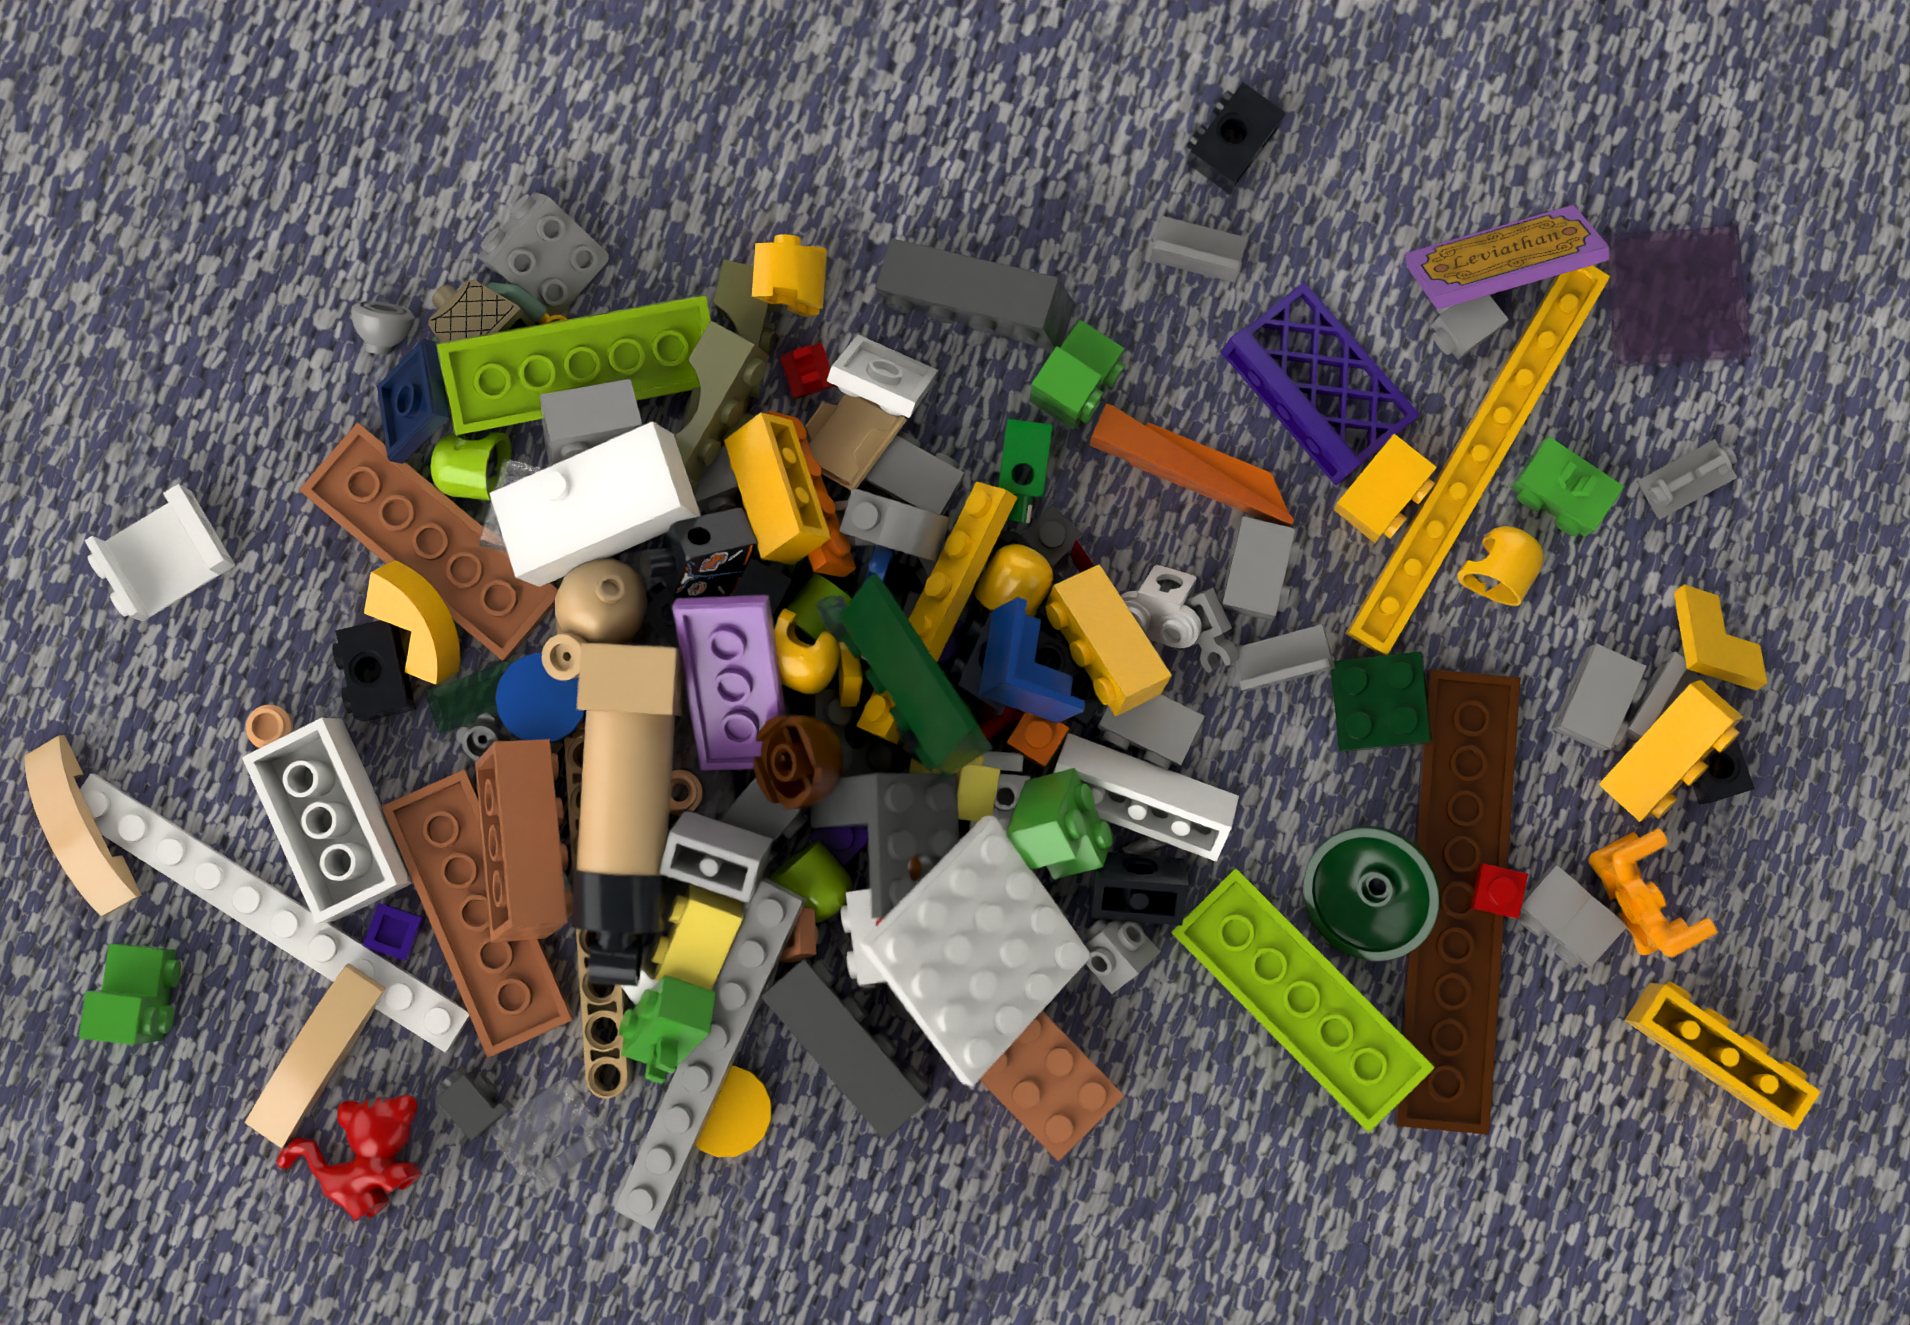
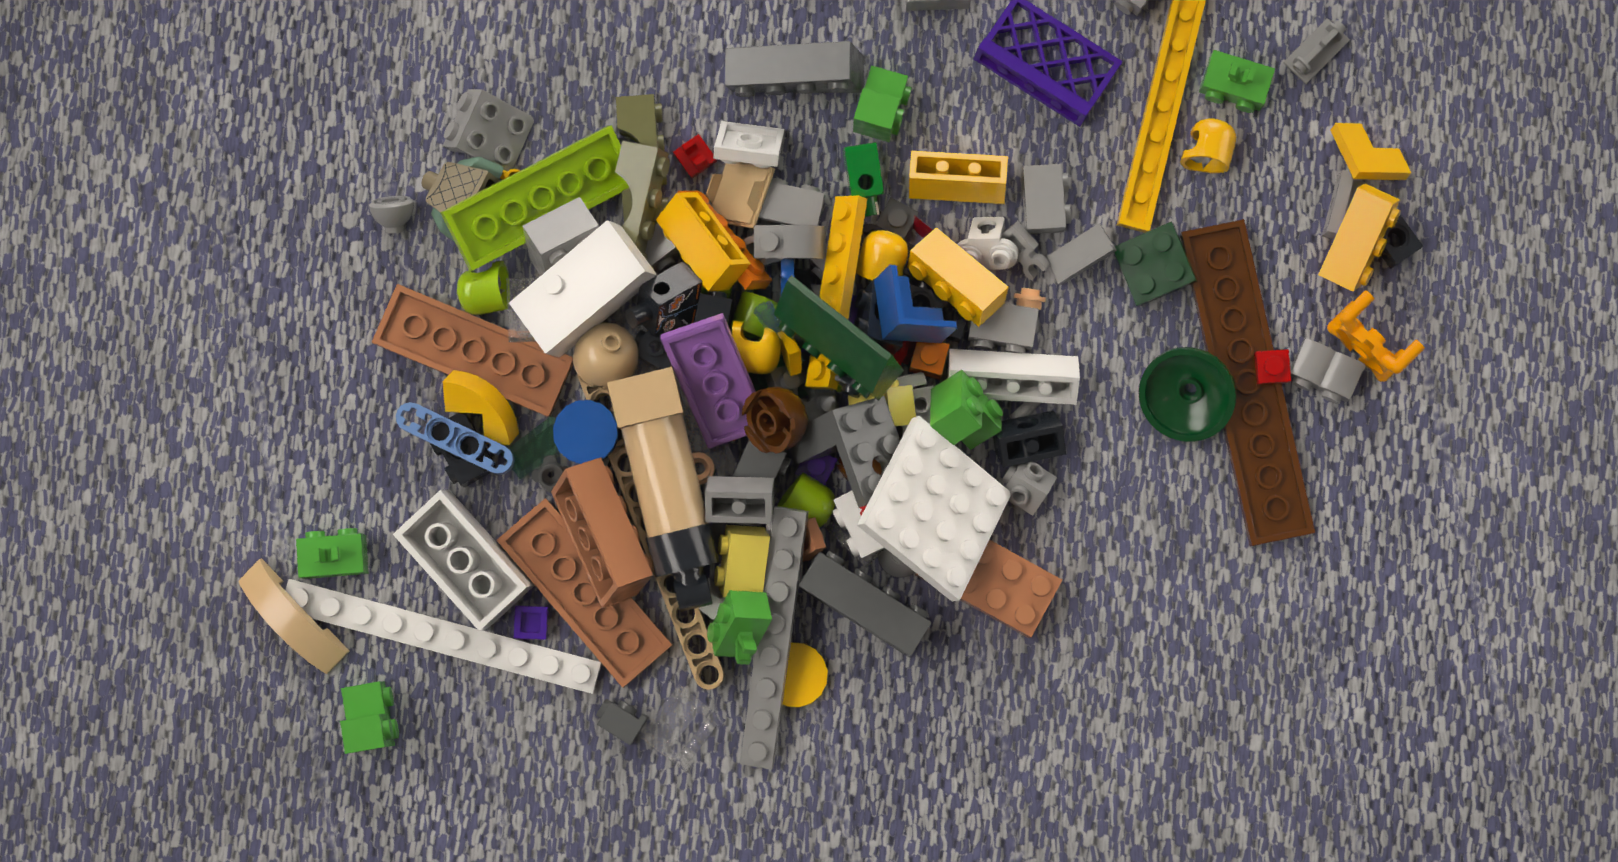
camera: 15 degrees left, 0 degrees up
(157, 760) = (332, 555): none -> bright green brick
(160, 556) = (289, 416): white panel -> none
(268, 725) = (400, 509): light nougat plate -> none
(315, 1055) = (504, 722): tan slope -> none
(365, 653) = (456, 436): none -> medium blue beam
(375, 1133) = (562, 761): red animal -> none
(412, 401) = (433, 257): dark blue plate -> none
(562, 656) = (594, 398): tan tile -> none
(790, 274) = (665, 93): yellow cylinder -> none
(1150, 504) = (958, 177): none -> yellow brick
(1191, 465) = (946, 137): orange wedge -> none
(1197, 697) = (1029, 298): none -> light nougat plate
(1303, 1000) = (1162, 480): lime plate -> none
(1385, 489) = (1114, 119): yellow brick -> none
(1600, 698) = (1302, 217): light grey brick -> none
(1722, 1055) = (1455, 431): yellow brick -> none

